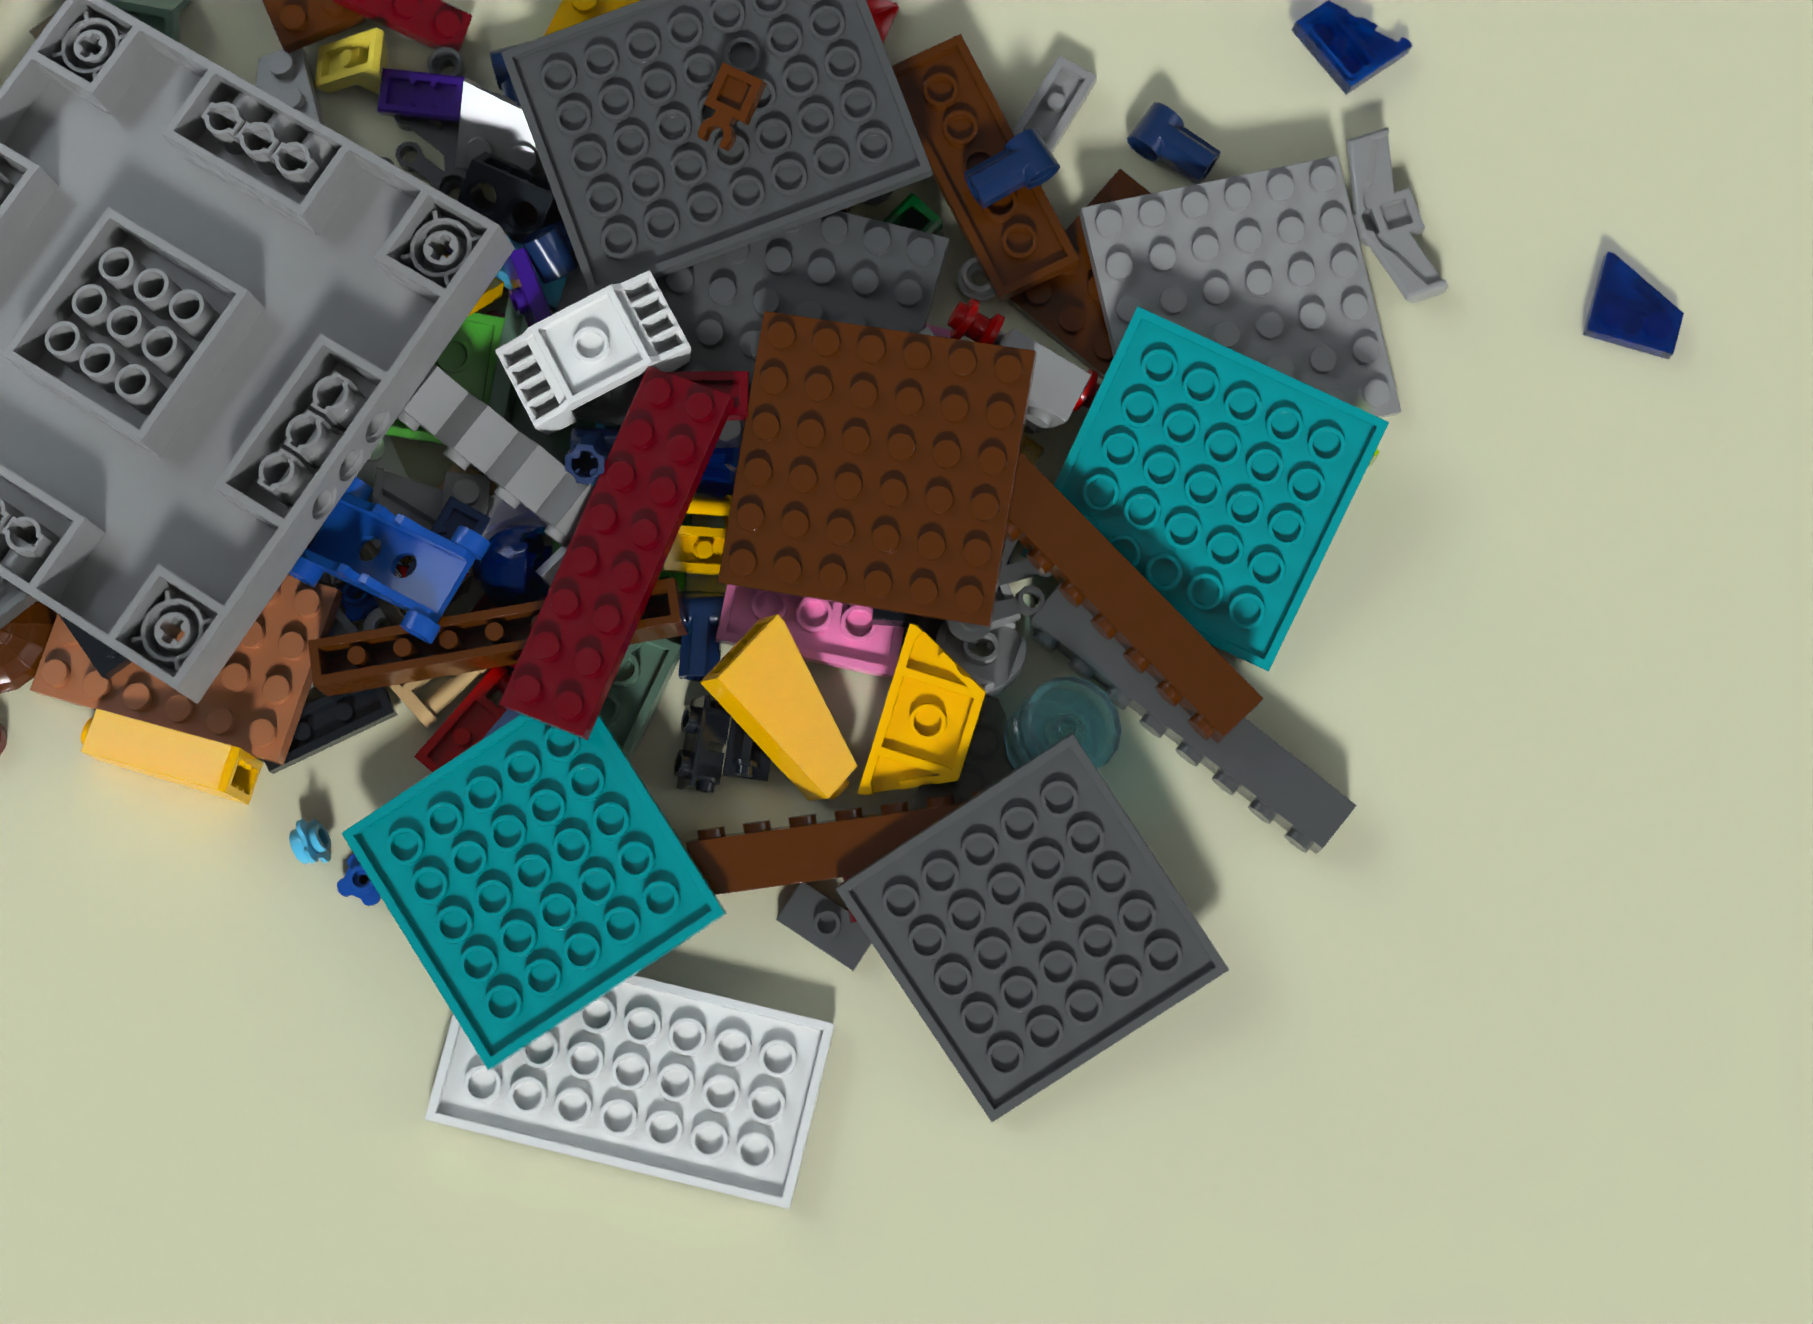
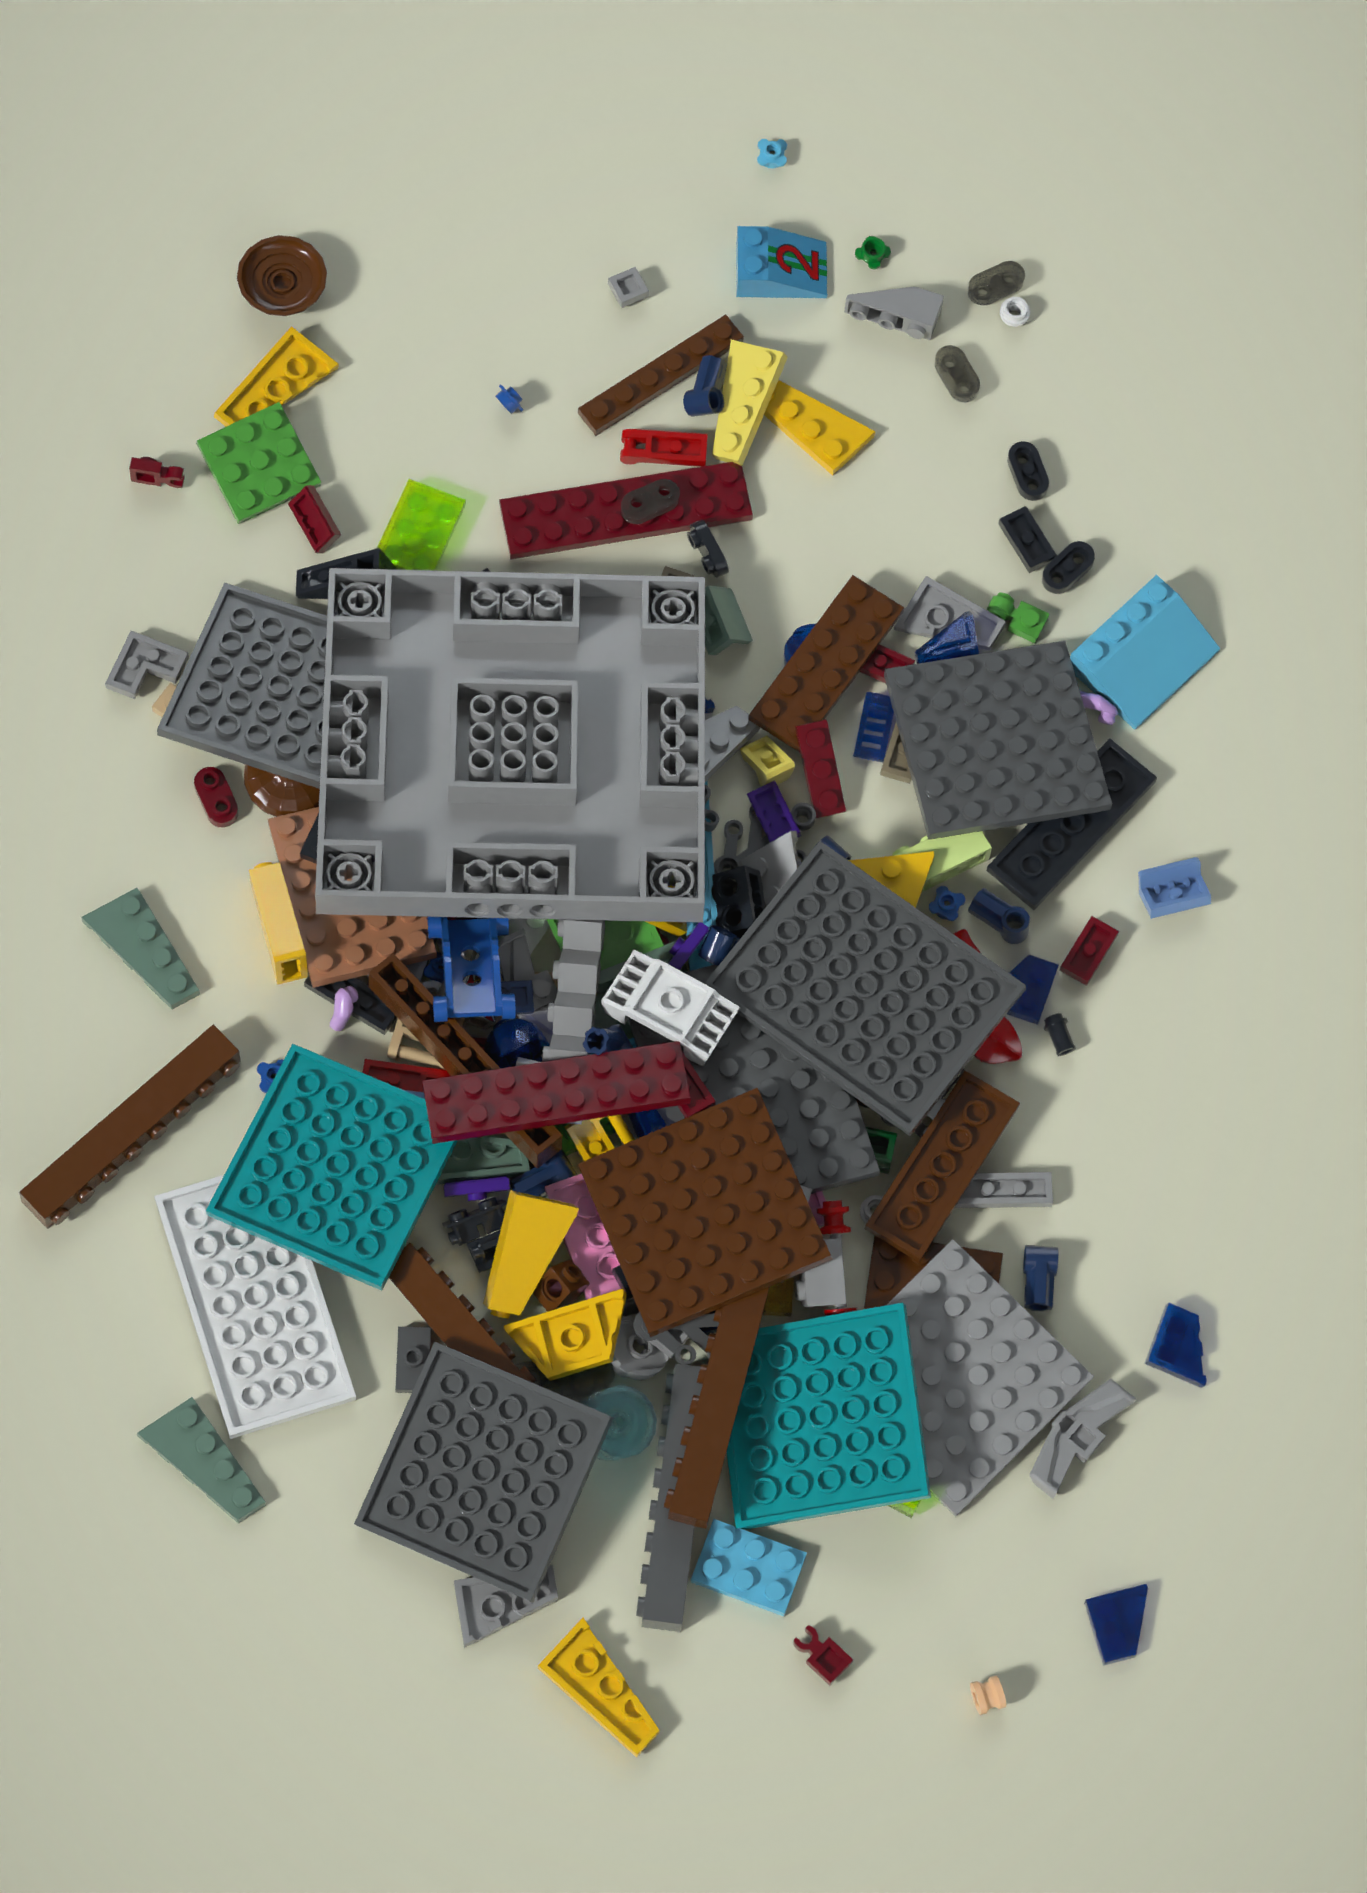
camera: 50 degrees right, 10 degrees down
(79, 940) = (139, 940): none -> sand green wing
(310, 842) = (277, 1032): medium azure plate -> none
(316, 1096) = (130, 1127): none -> reddish brown brick
(332, 743) = (343, 1007): none -> lavender arm
(664, 721) = (476, 1189): none -> dark purple plate
(733, 99) = (875, 990): reddish brown plate -> none
(785, 1258) = (196, 1450): none -> sand green wing
(850, 695) = (560, 1285): none -> reddish brown brick
(1021, 163) = (956, 1186): dark blue piece -> none
(1196, 1026) = (488, 1608): none -> light grey wing
(1322, 685) = (748, 1567): none -> medium azure plate
(1355, 951) = (591, 1680): none -> yellow wing
(1485, 662) = (826, 1658): none -> dark red plate
(1638, 506) = (988, 1695): none -> light nougat wheel

